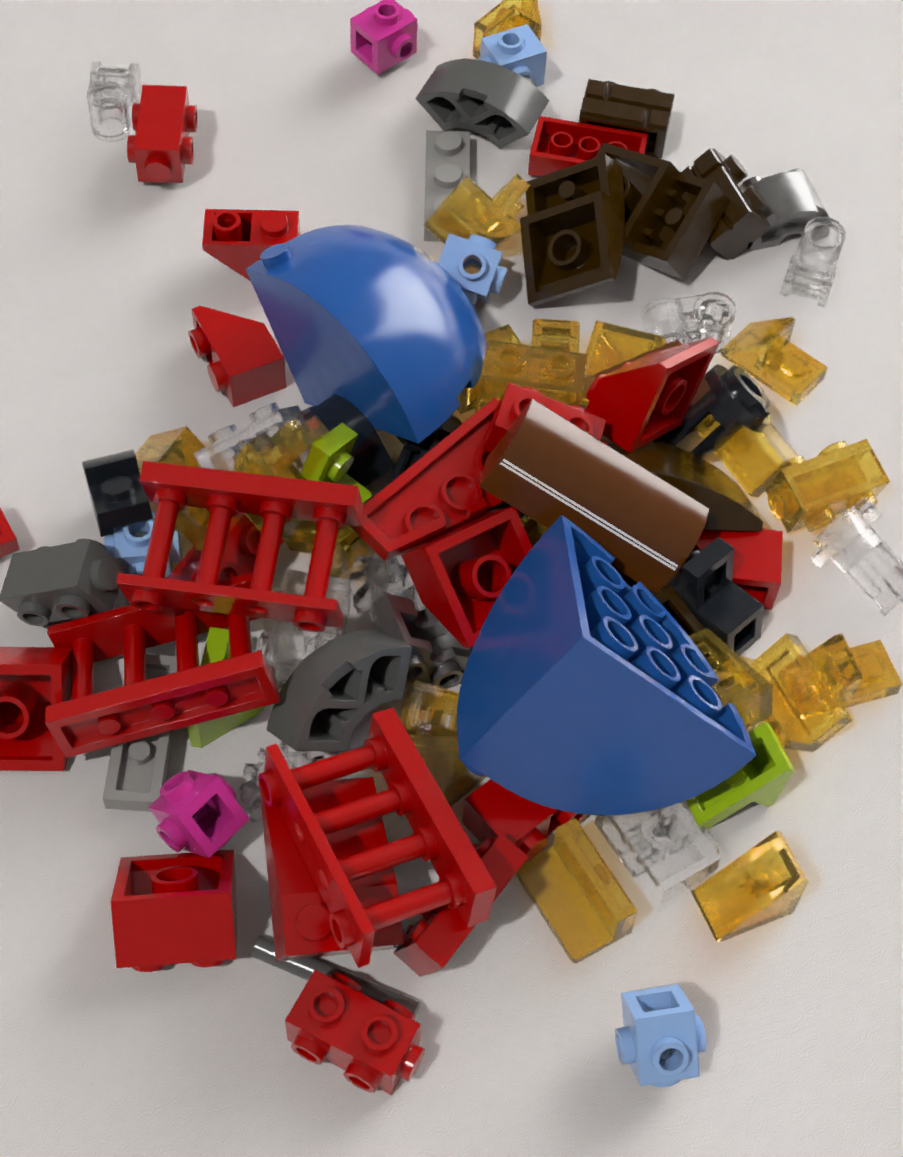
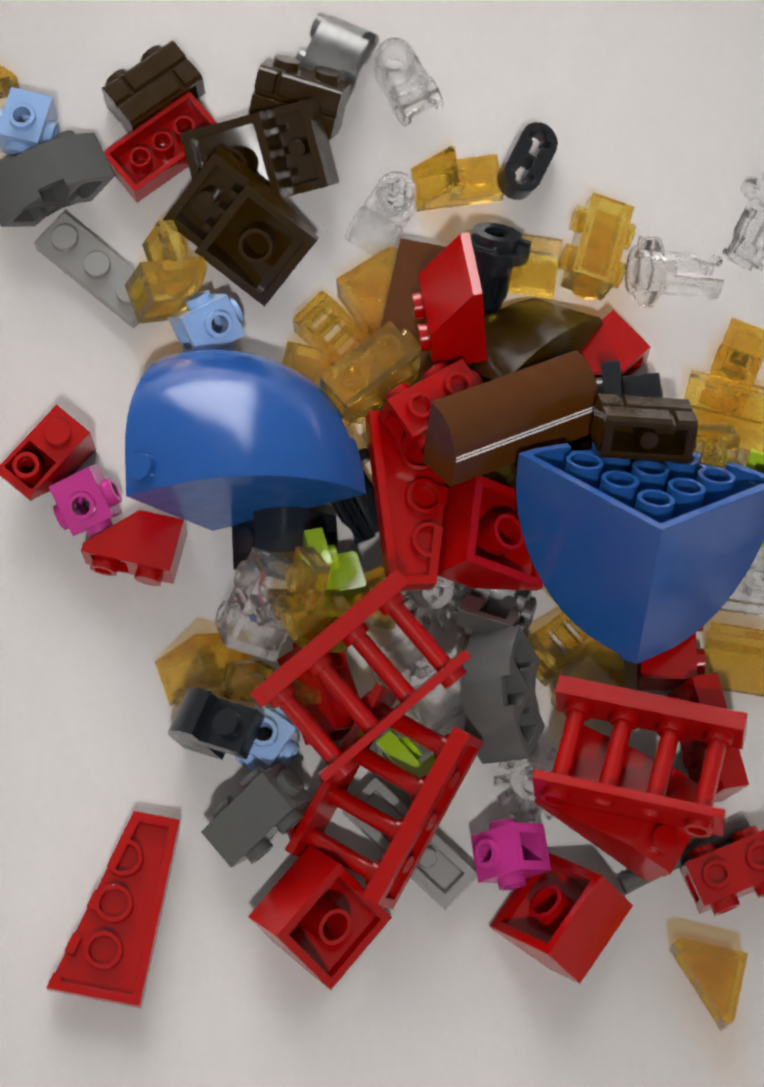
camera: 45 degrees left, 15 degrees up
(226, 1095) = (714, 974): none -> clear yellow slope
(230, 287) = (71, 498): none -> dark pink brick
(689, 604) = (644, 428): none -> dark brown brick
(846, 399) = (519, 156): none -> black beam

